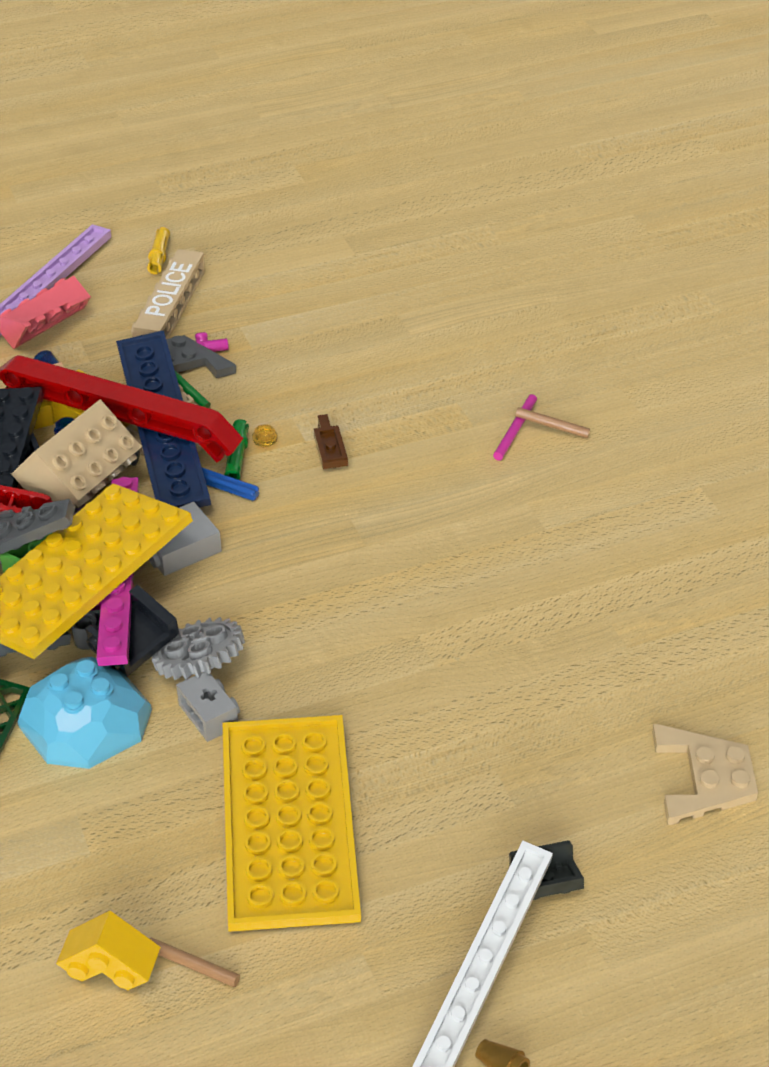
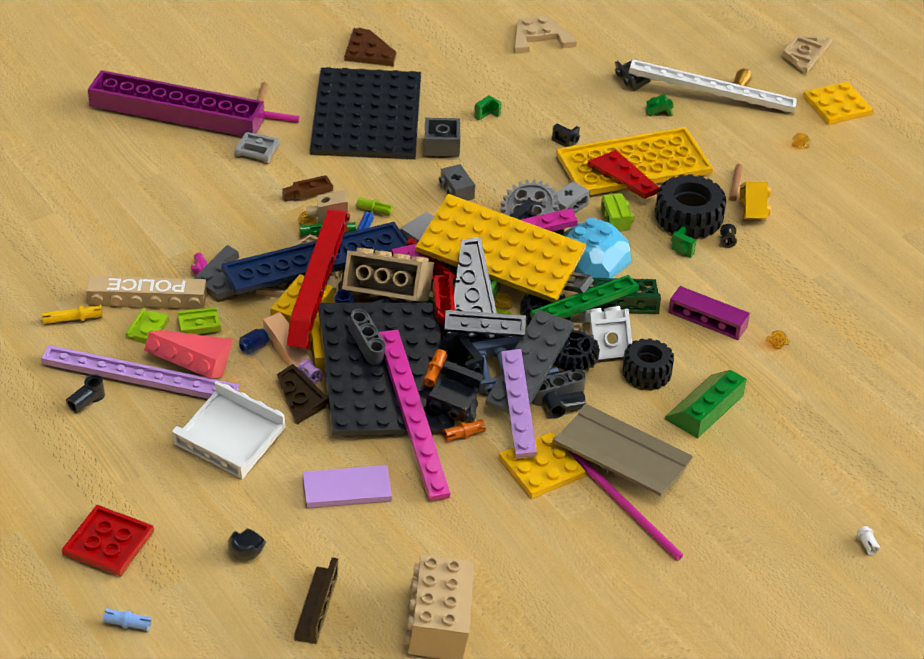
camera: 105 degrees left, 0 degrees up
(23, 250) = (90, 392): none -> black piece
(43, 898) = (727, 235): none -> black bush
(47, 826) = (682, 243): none -> green bracket
(103, 332) = (199, 321): none -> lime plate
(118, 300) = (145, 323): none -> lime plate
(130, 882) = (692, 204): none -> black tyre
(157, 758) = (617, 211): none -> lime brick
(246, 781) = (625, 173): none -> red wing
(254, 438) = (327, 201): none -> tan torso
(270, 499) = (374, 206): none -> lime axle
(290, 586) = (457, 182): none -> dark grey brick
(378, 736) = (565, 136): none -> black bracket
(400, 580) = (442, 137): none -> dark grey brick
(440, 413) = (257, 143): none -> light grey plate
(441, 898) = (659, 104): none -> green bracket
(479, 652) = (487, 106): none -> green bracket
(502, 527) = (366, 113): none -> black plate
(533, 344) = (176, 103): none -> magenta brick
(674, 548) = (369, 48): none -> reddish brown plate

